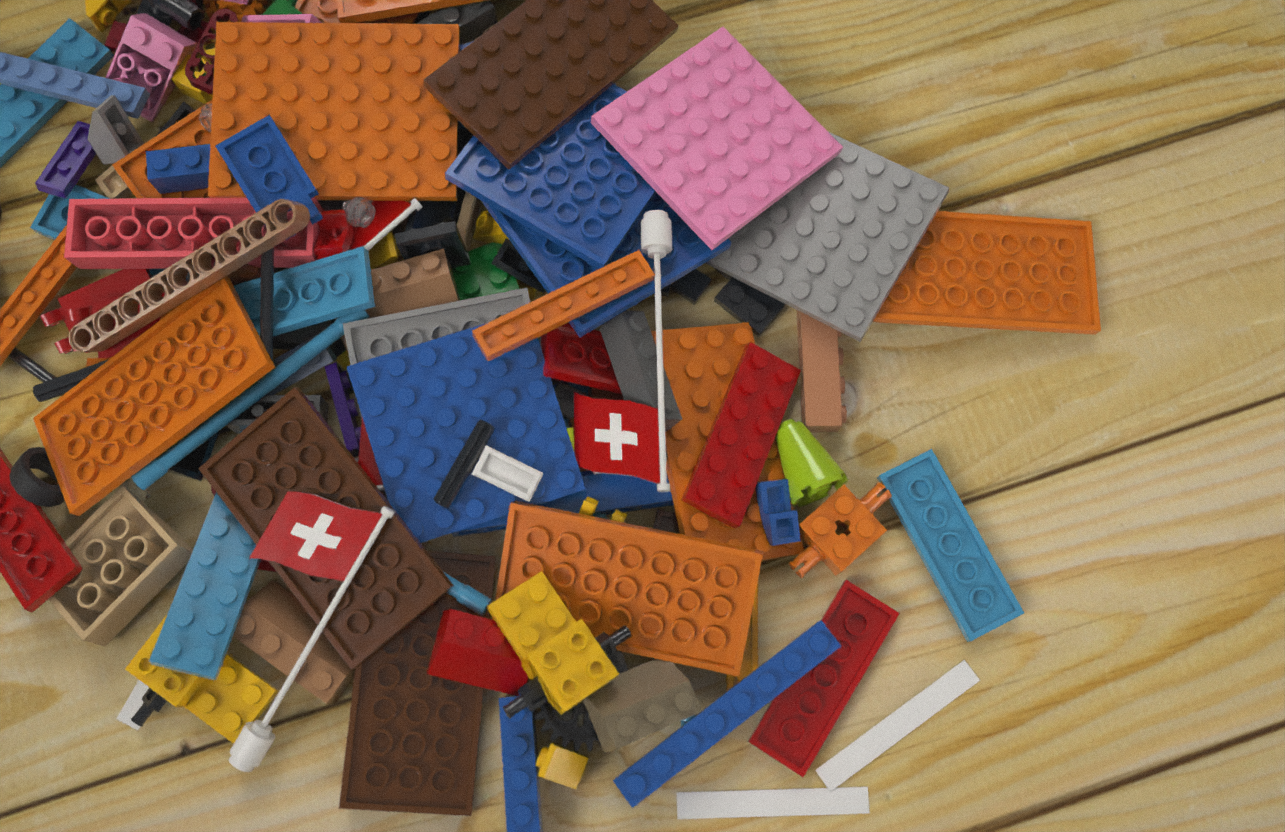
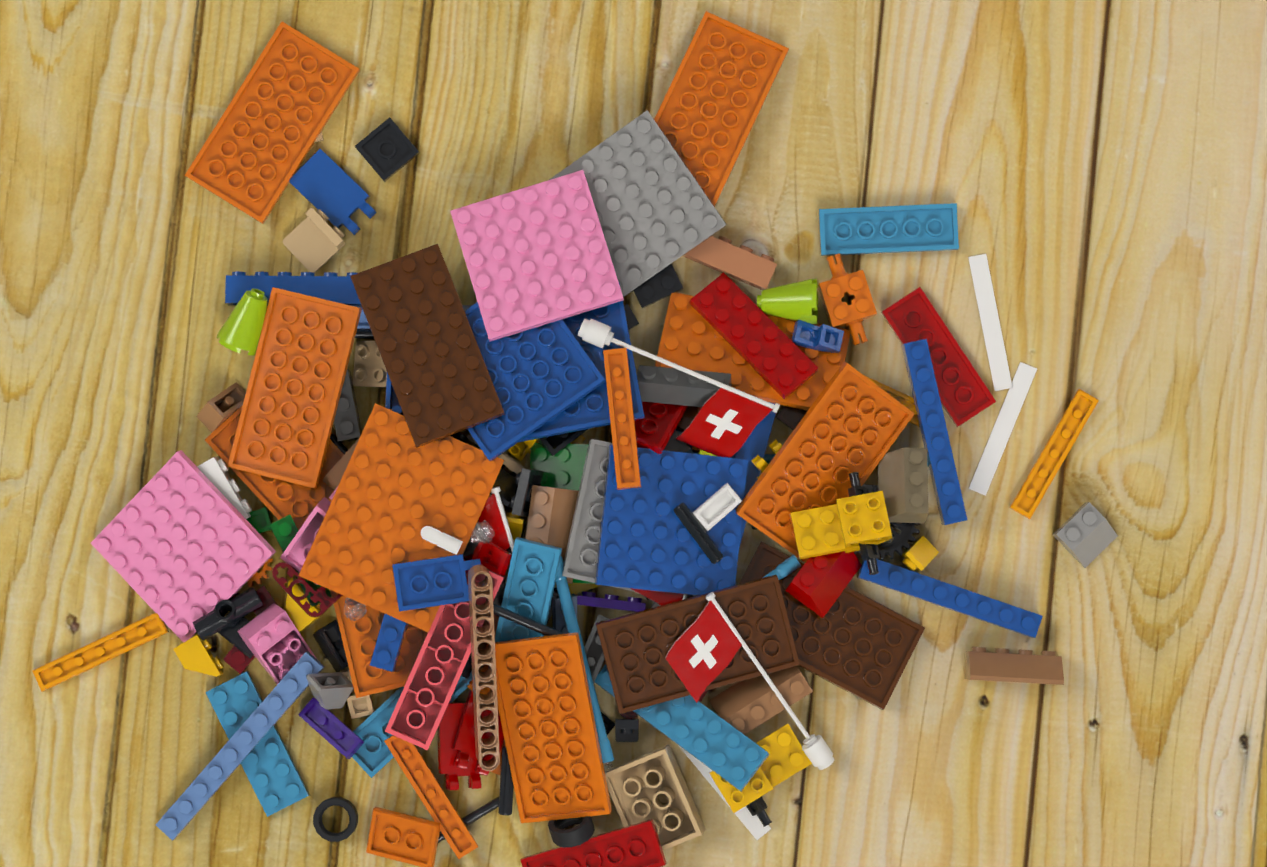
camera: 60 degrees left, 10 degrees up
(196, 494) = (626, 730): none -> black bracket
(323, 158) = (441, 539): none -> white bar

